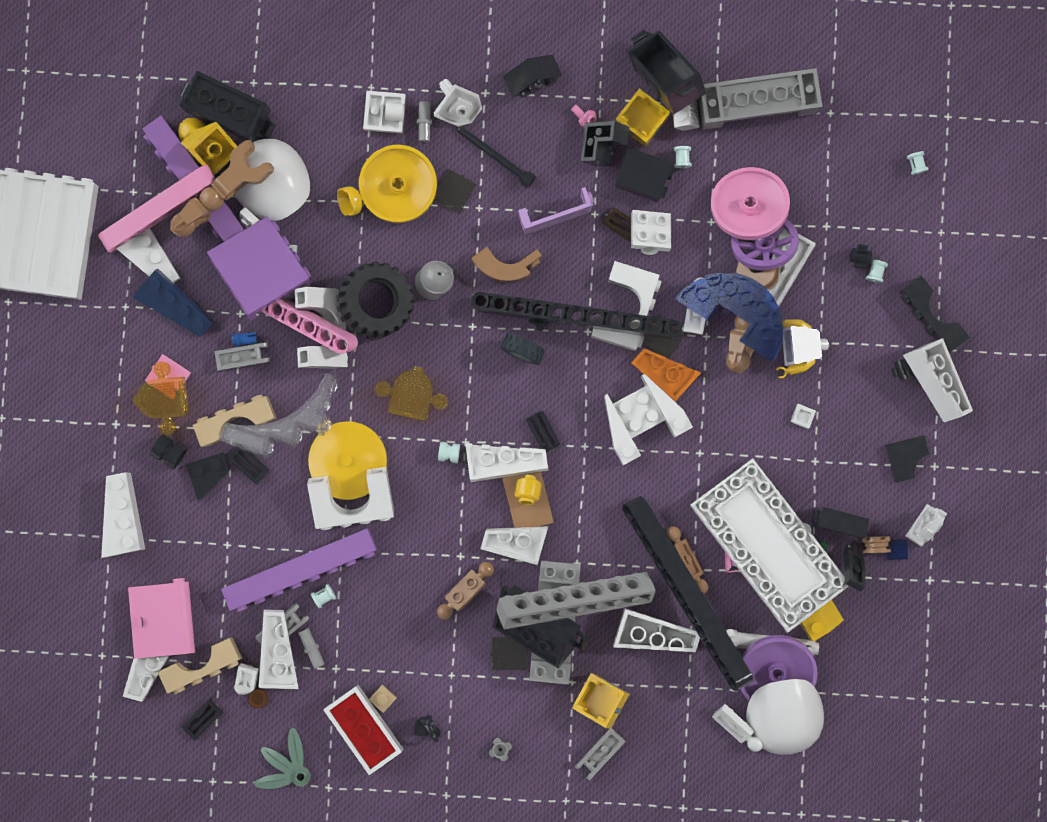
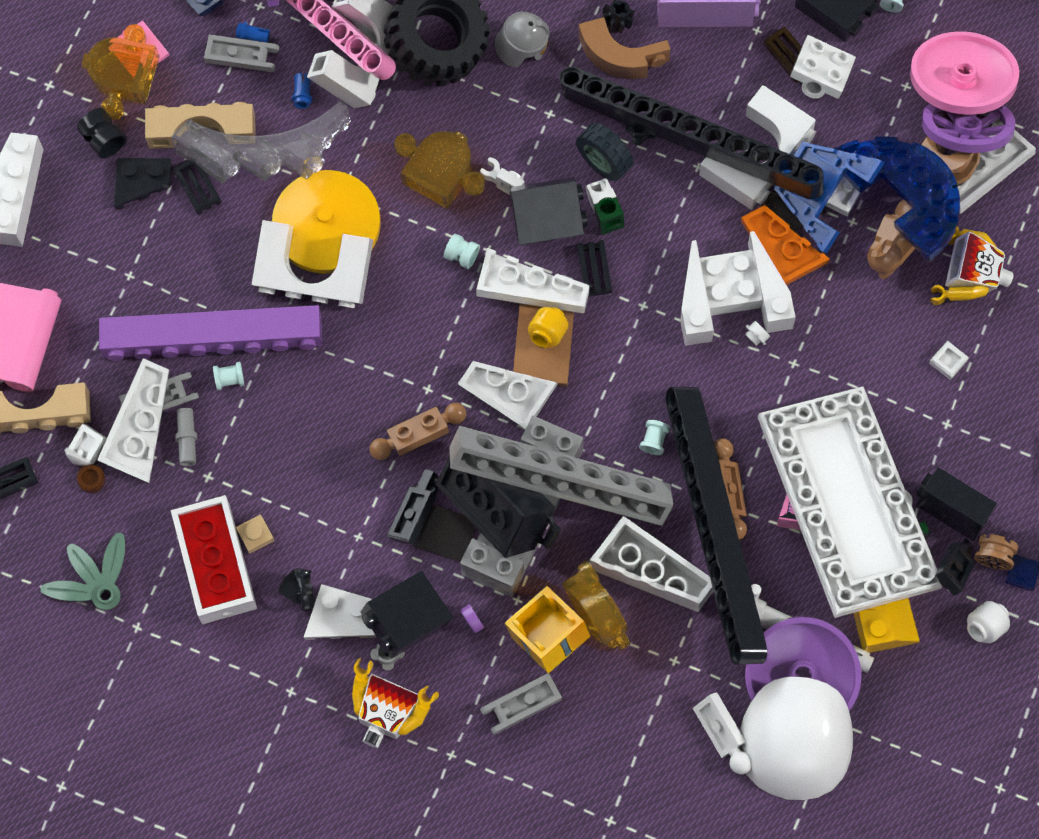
camera: 15 degrees right, 15 degrees down
(295, 372) = (301, 96): none -> blue pin
(463, 390) = (502, 178): none -> white plate
(466, 732) = (337, 615): none -> white wing
(483, 646) = (414, 509): none -> black hinge
(495, 234) = (618, 16): none -> black gear
(498, 405) = (548, 210): none -> black brick
(504, 724) = (406, 614): none -> black brick
(514, 787) = (387, 706): none -> torso
(534, 384) = (605, 206): none -> dark green leg
(548, 708) = (472, 619): none -> medium lavender tile
(625, 540) = (654, 437): none -> light aqua bush
(629, 679) = (596, 608): none -> clear yellow piece
(669, 442) = (757, 333): none -> white plate
(681, 309) = (834, 167): none -> blue wing
(885, 593) = (988, 622): none -> white head

